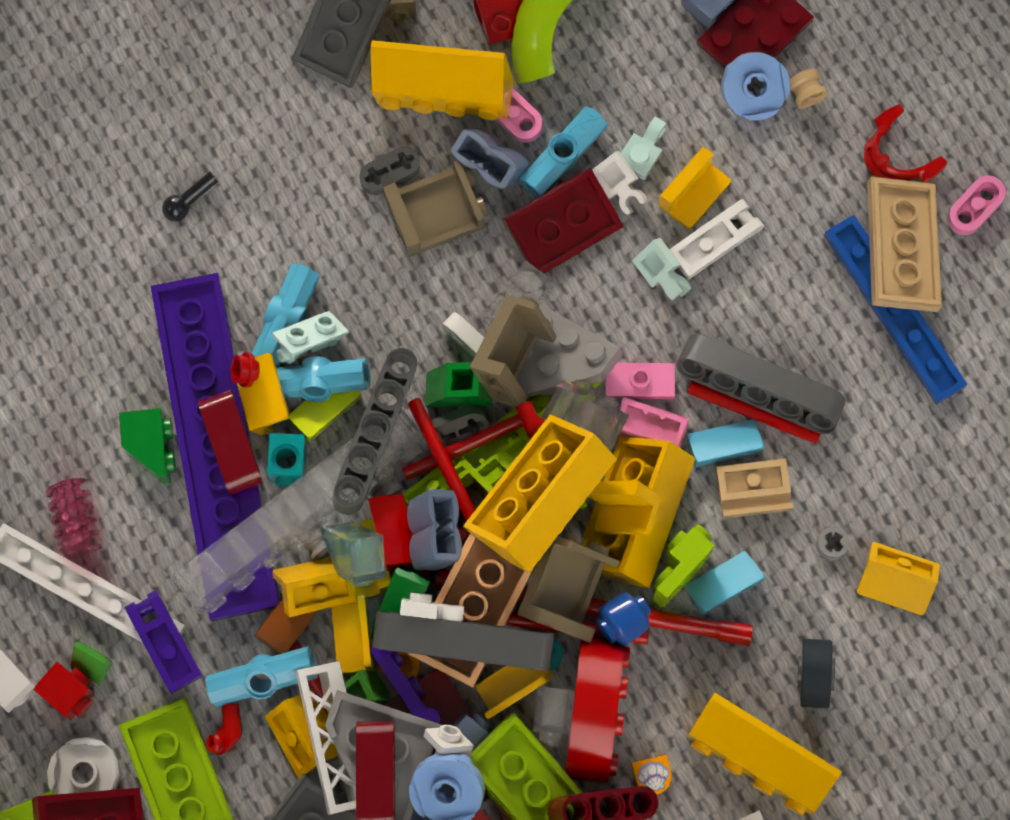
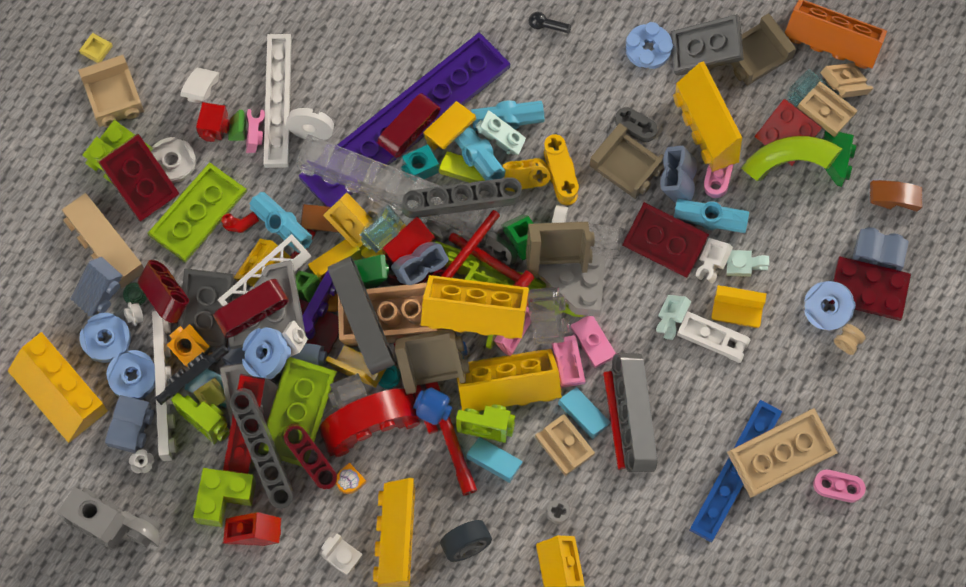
camera: 60 degrees right, 5 degrees down
(71, 517) = (315, 67): clear pink piece -> none
(118, 648) = (254, 136): none -> bright pink plate
(146, 441) = (385, 82): green slope -> none
(150, 568) = (304, 122): none -> white tile
(164, 643) = (269, 156): dark purple plate -> none
(244, 369) = (455, 106): red plate -> none
(281, 83) = (652, 34): none -> light blue plate
(378, 336) = (526, 172): none -> yellow piece
(398, 292) = (561, 169): none -> yellow piece
(421, 606) = (367, 281): white plate -> none
(625, 507) = (501, 370): yellow panel -> none
(879, 163) = (828, 408): red helmet -> none

